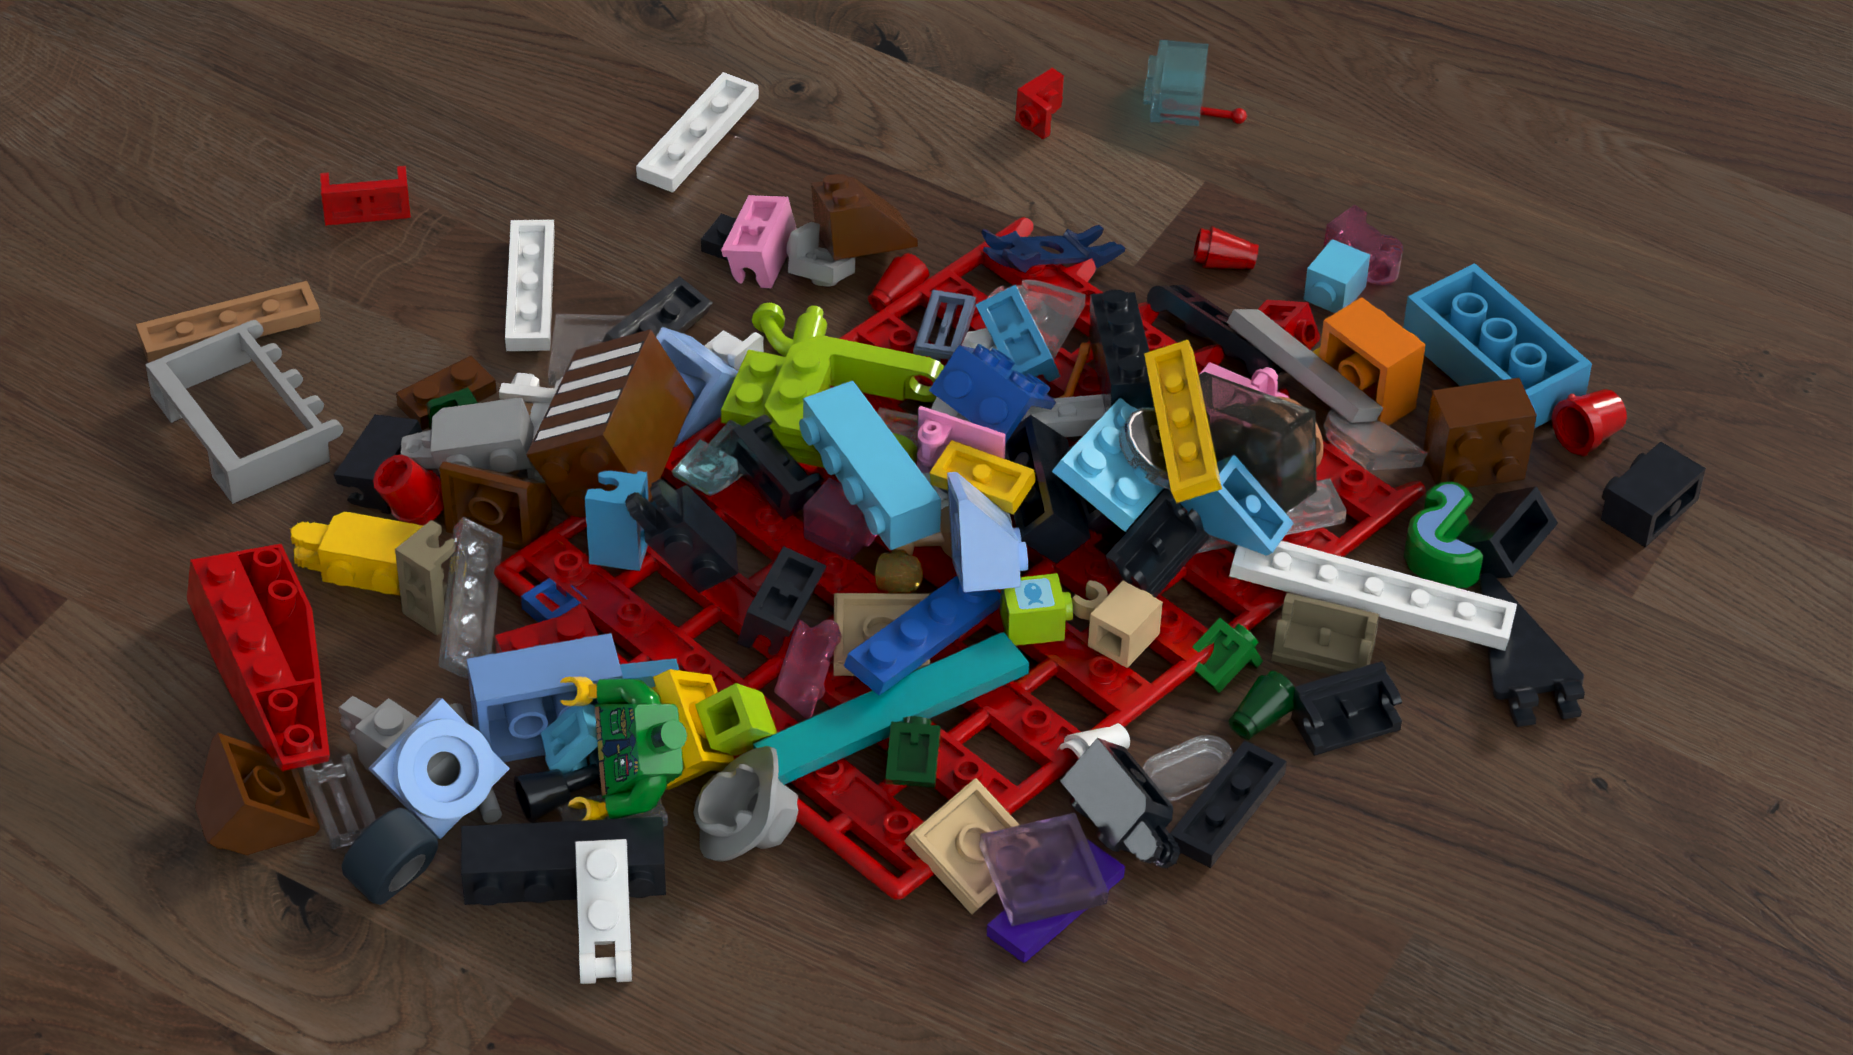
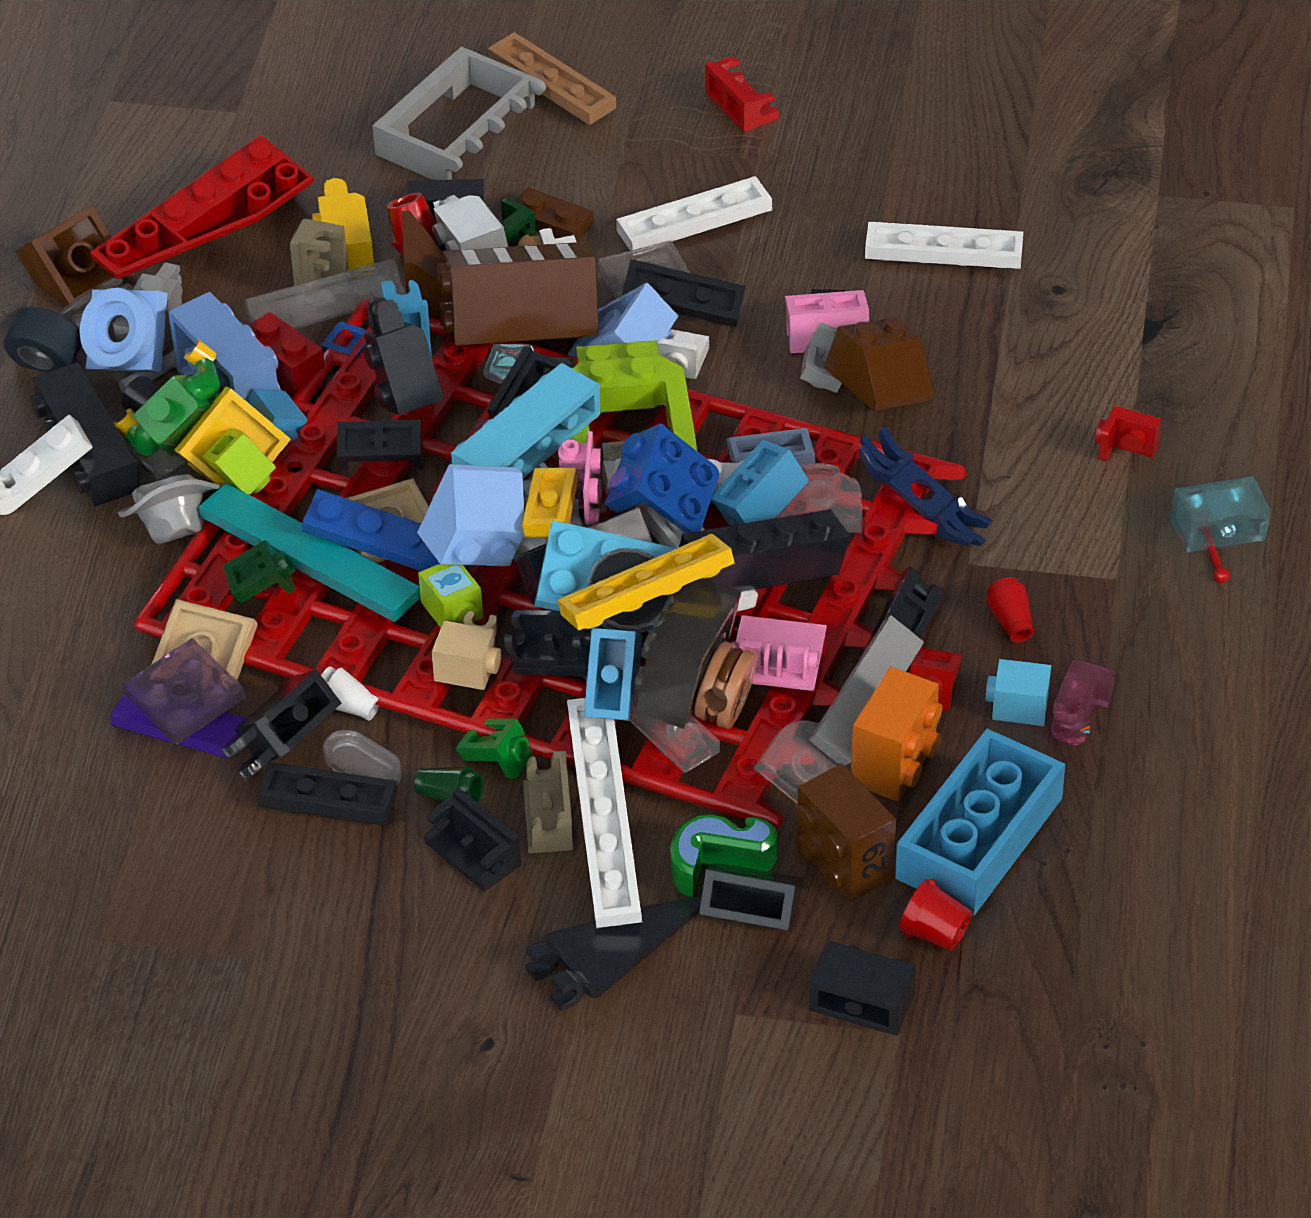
camera: 70 degrees right, 0 degrees up
(770, 320) = (735, 386): lime plant -> none
(807, 665) = (299, 485): clear pink hinge -> none
(898, 279) = (834, 415): red cone -> none

